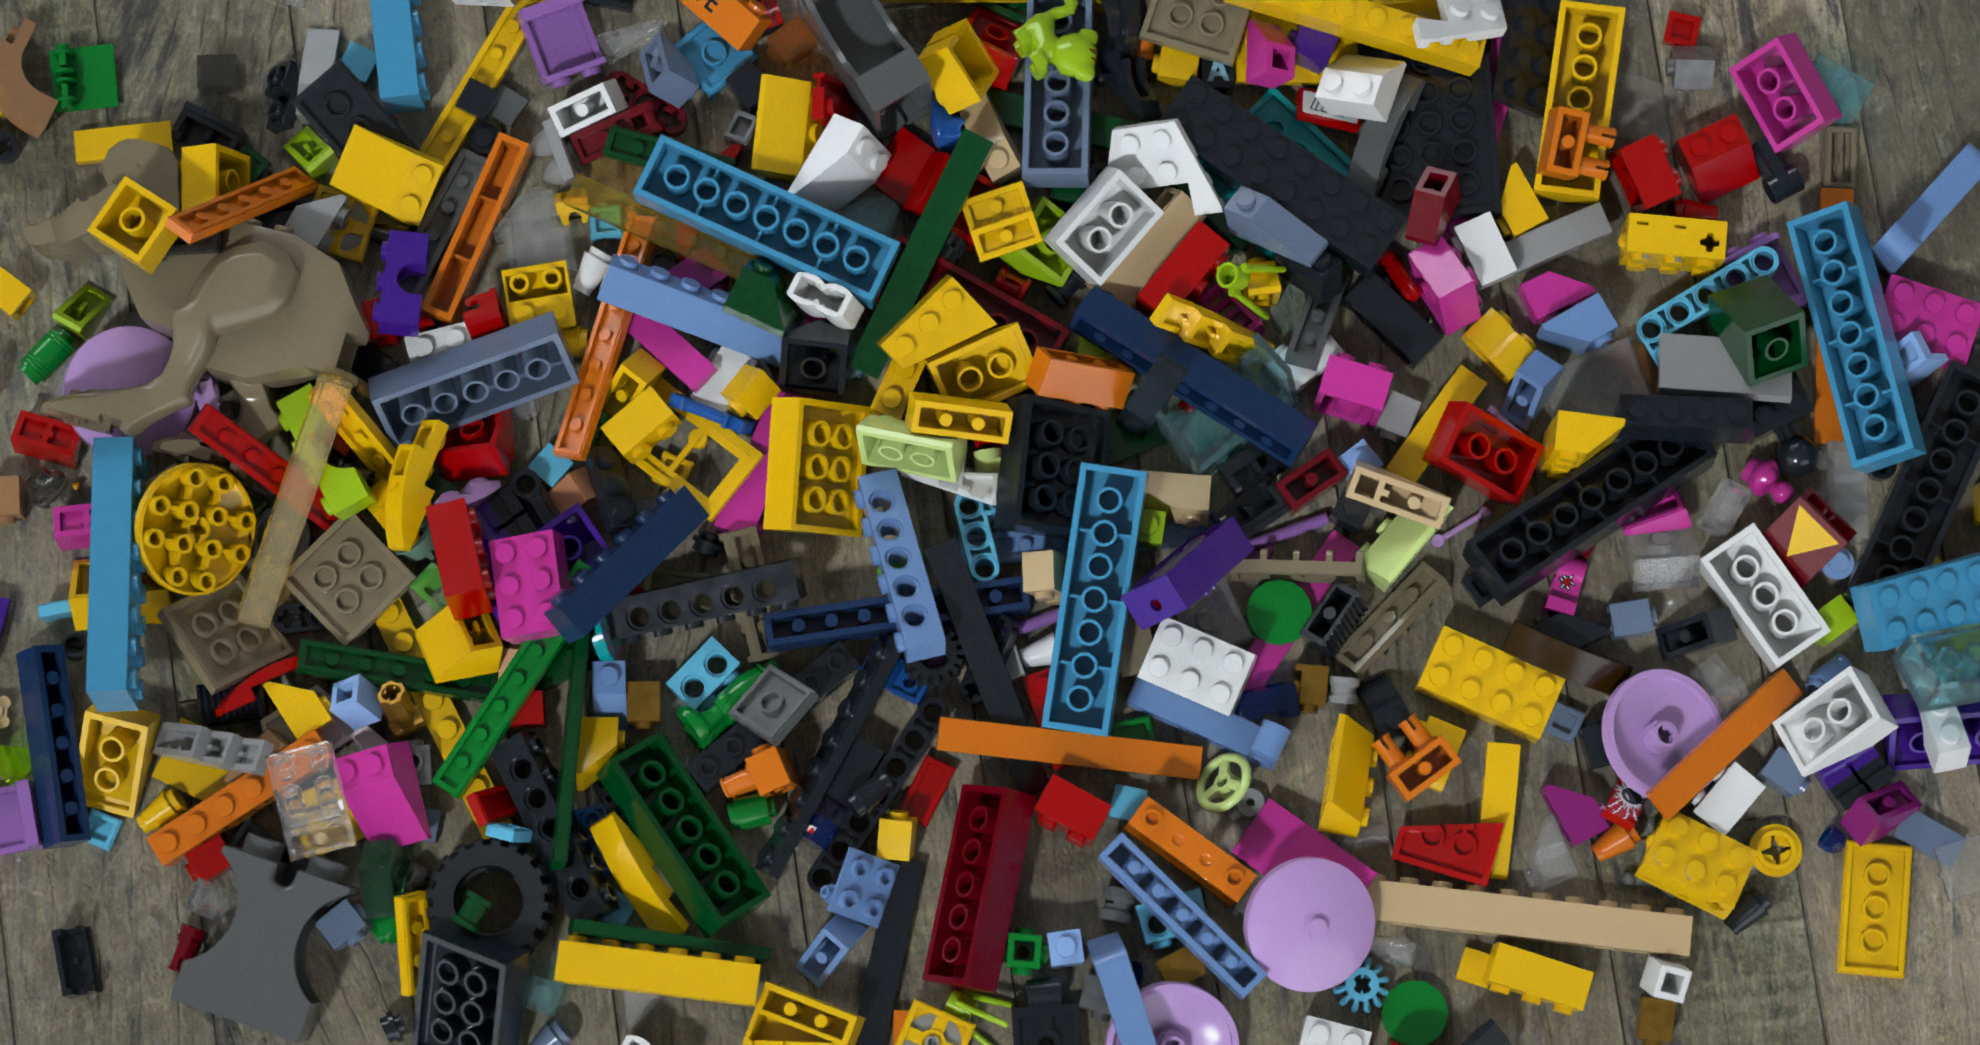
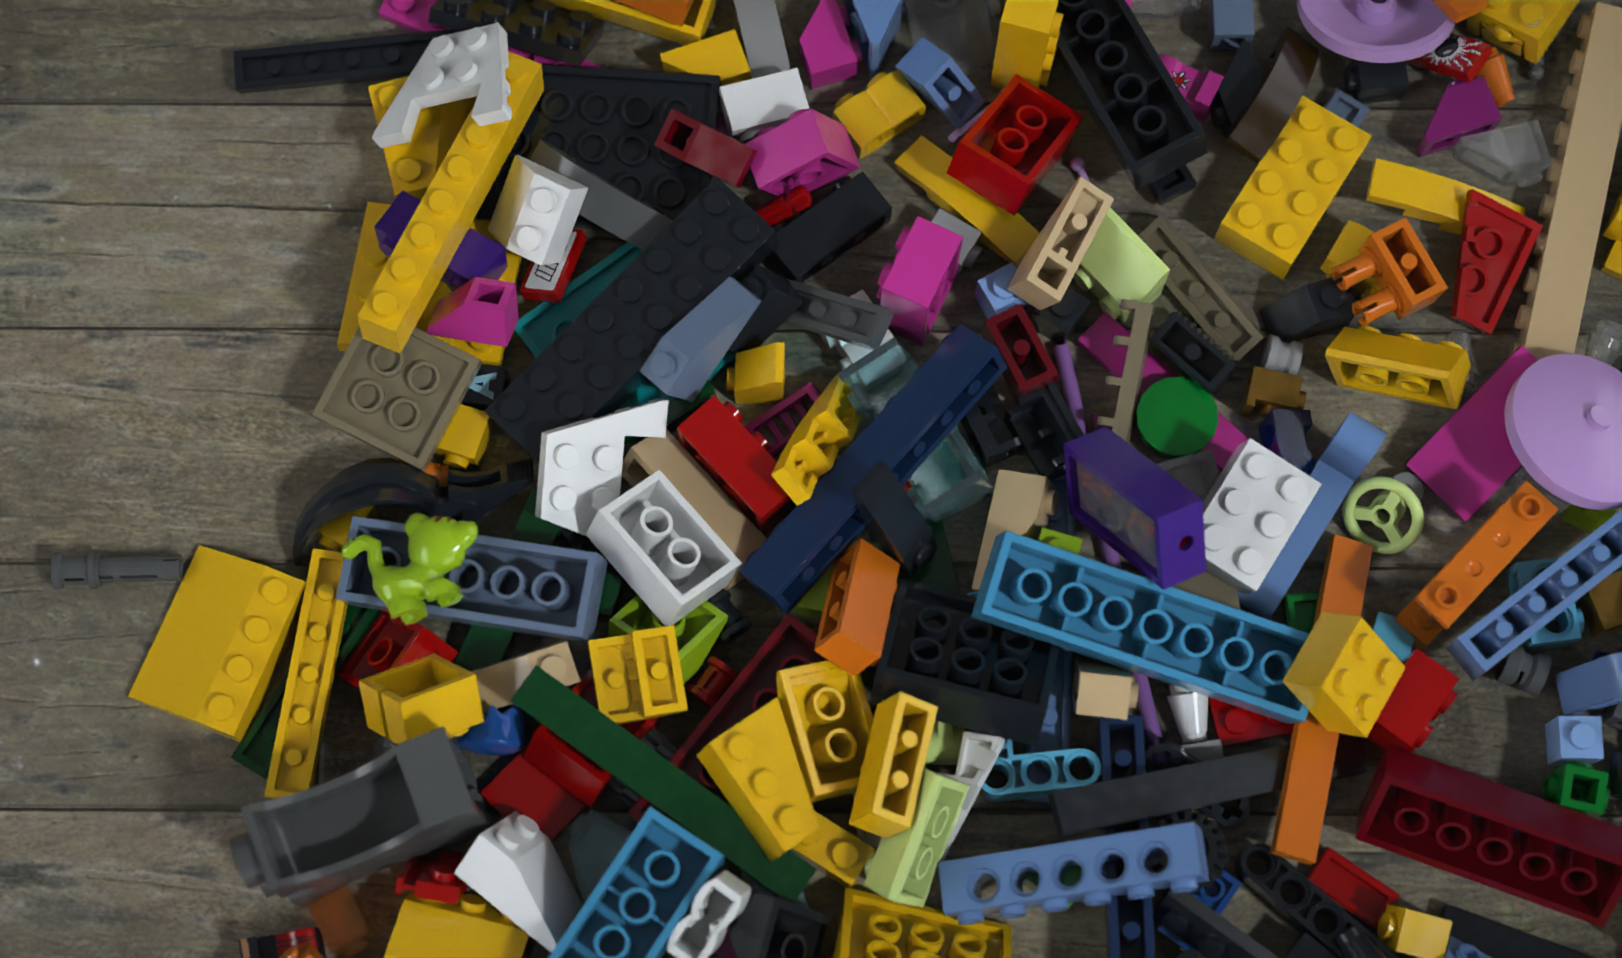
camera: 80 degrees left, 5 degrees down
(1080, 748) = (1344, 674): none -> yellow brick
(1237, 277) = (759, 392): lime plant -> none

